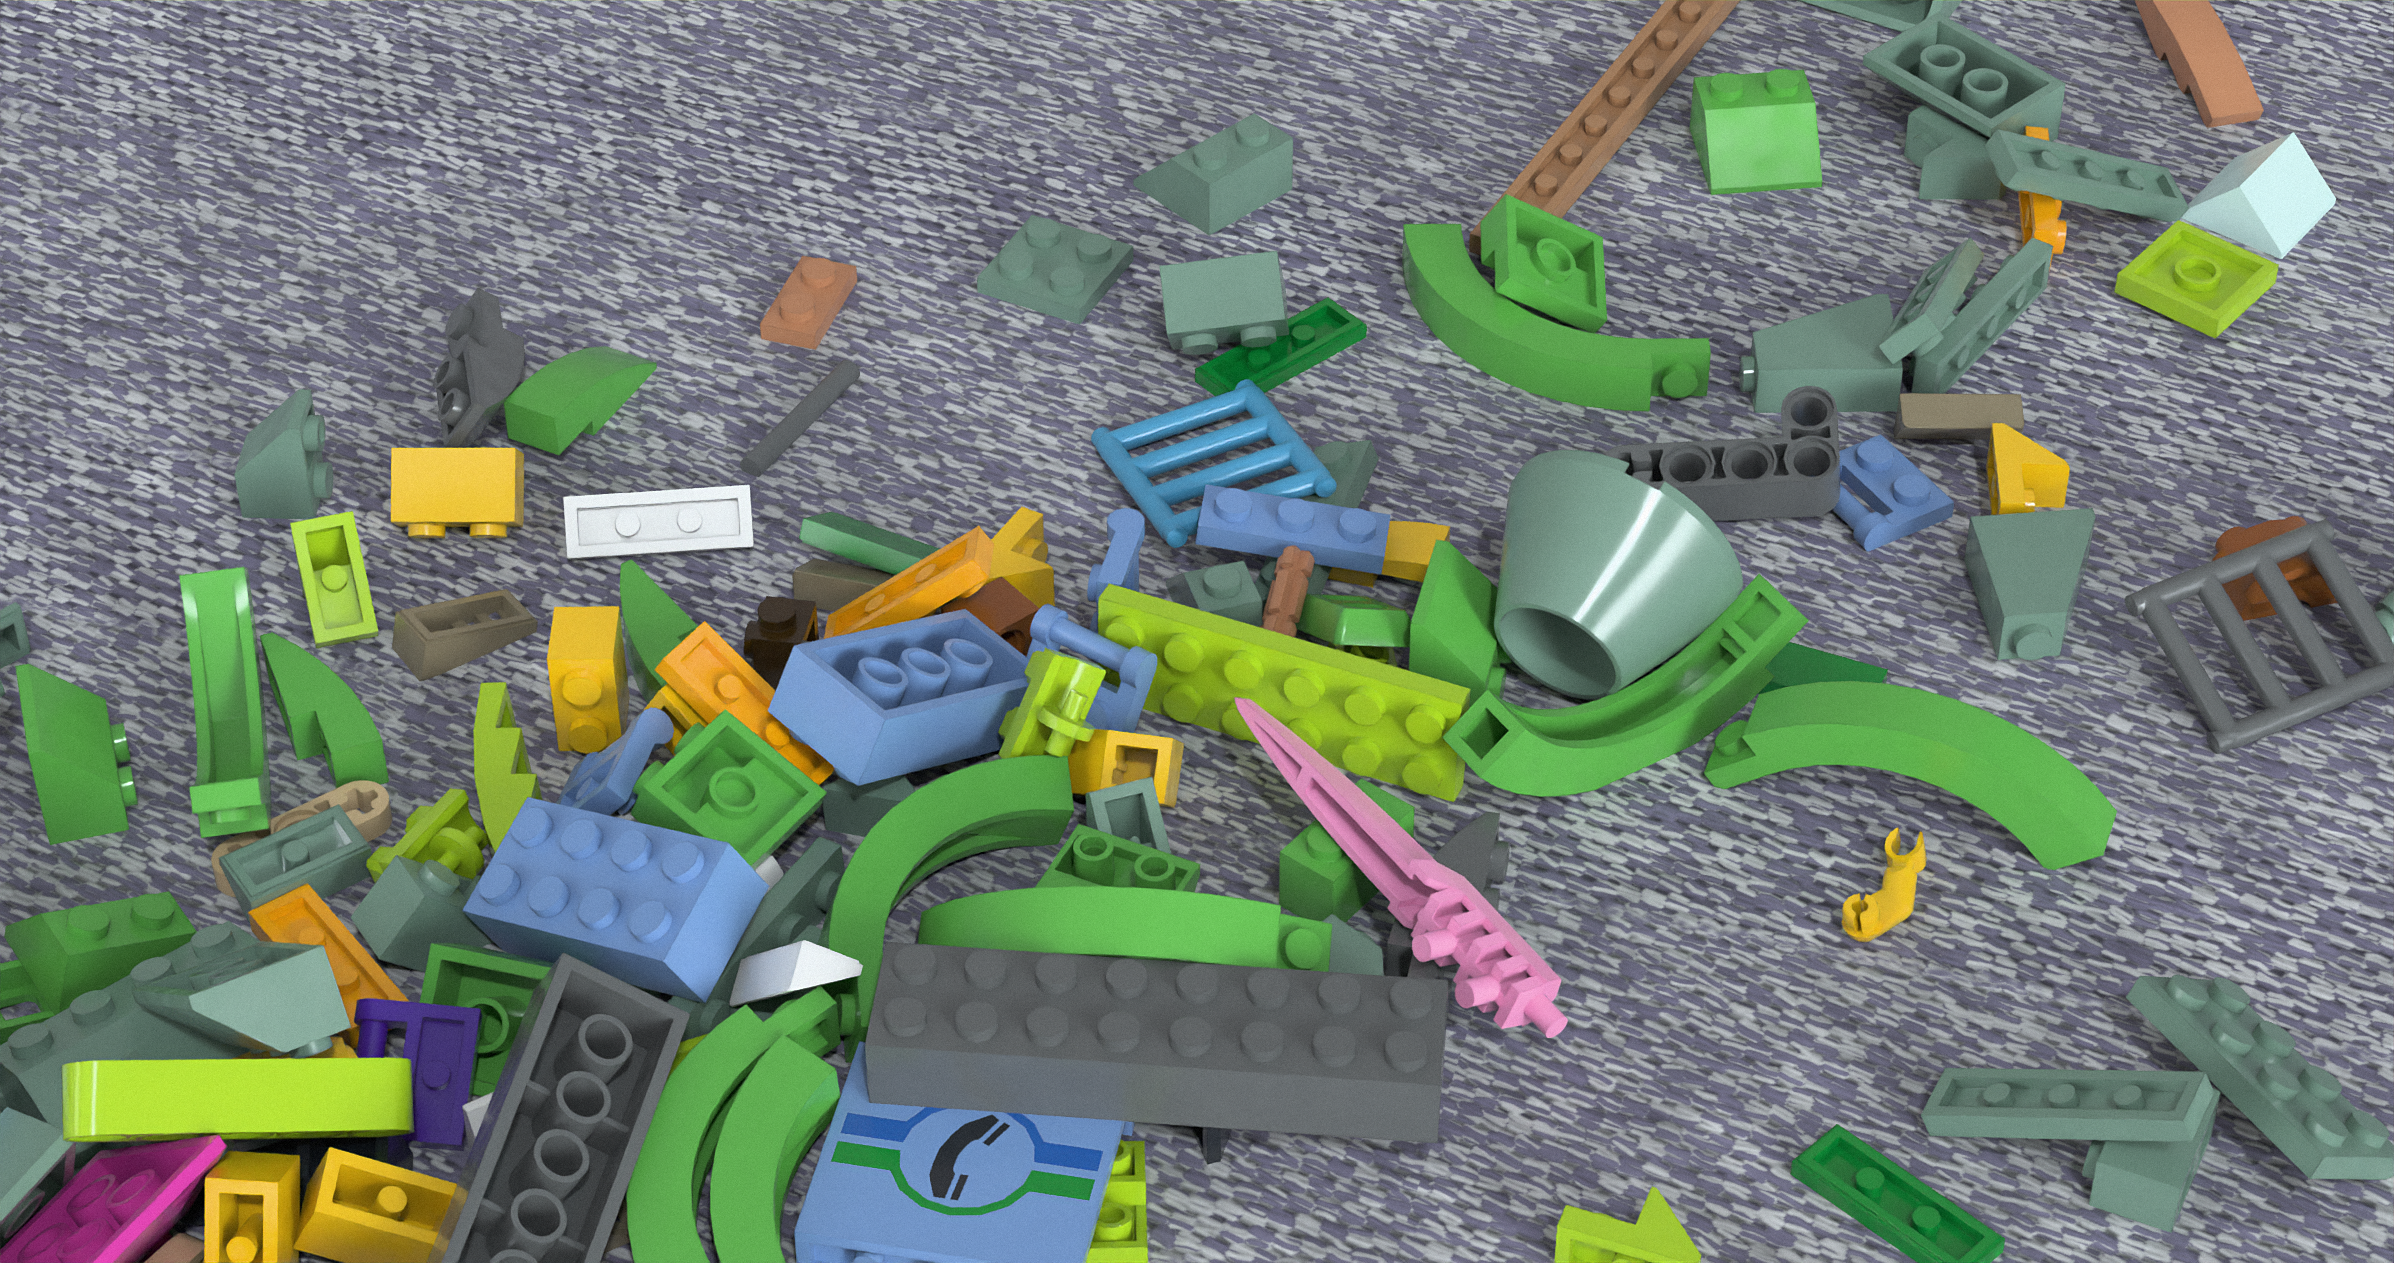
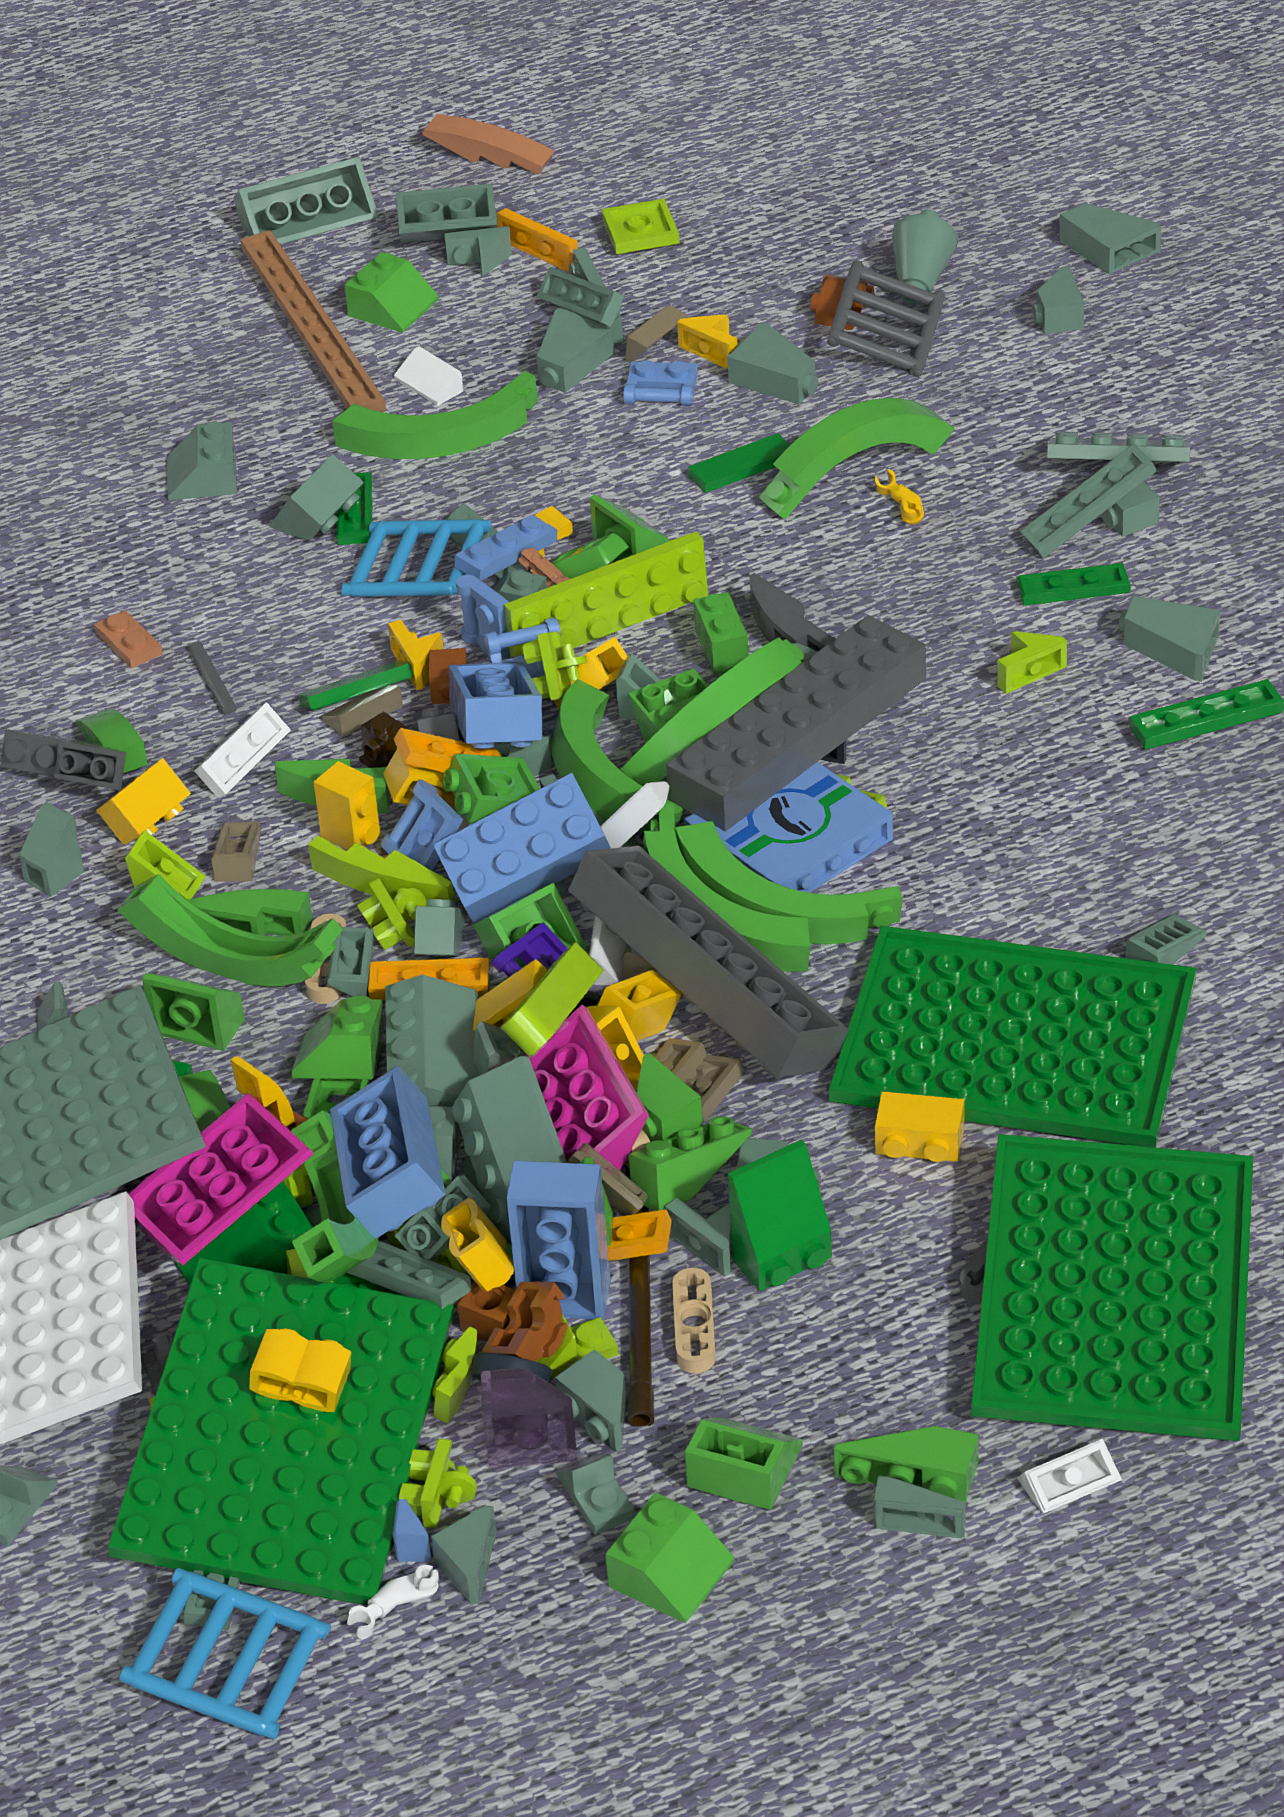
camera: 50 degrees left, 0 degrees up
(256, 998) = (490, 968): slope -> none
(920, 589) = (415, 675): light orange plate -> none
(1055, 269) = (204, 550): sand green plate -> none
(1441, 906) = (791, 609): bright pink piece -> none
(1546, 263) = (410, 392): bright green plate -> none
(1604, 573) = (662, 461): sand green cone -> none
(1631, 266) = (430, 376): none -> white slope
(1648, 721) = (731, 523): bright green arch -> none
(1777, 464) = (634, 395): dark grey beam -> none
(2085, 176) = (554, 214): sand green plate -> none
(2265, 198) = (607, 181): light aqua slope -> none

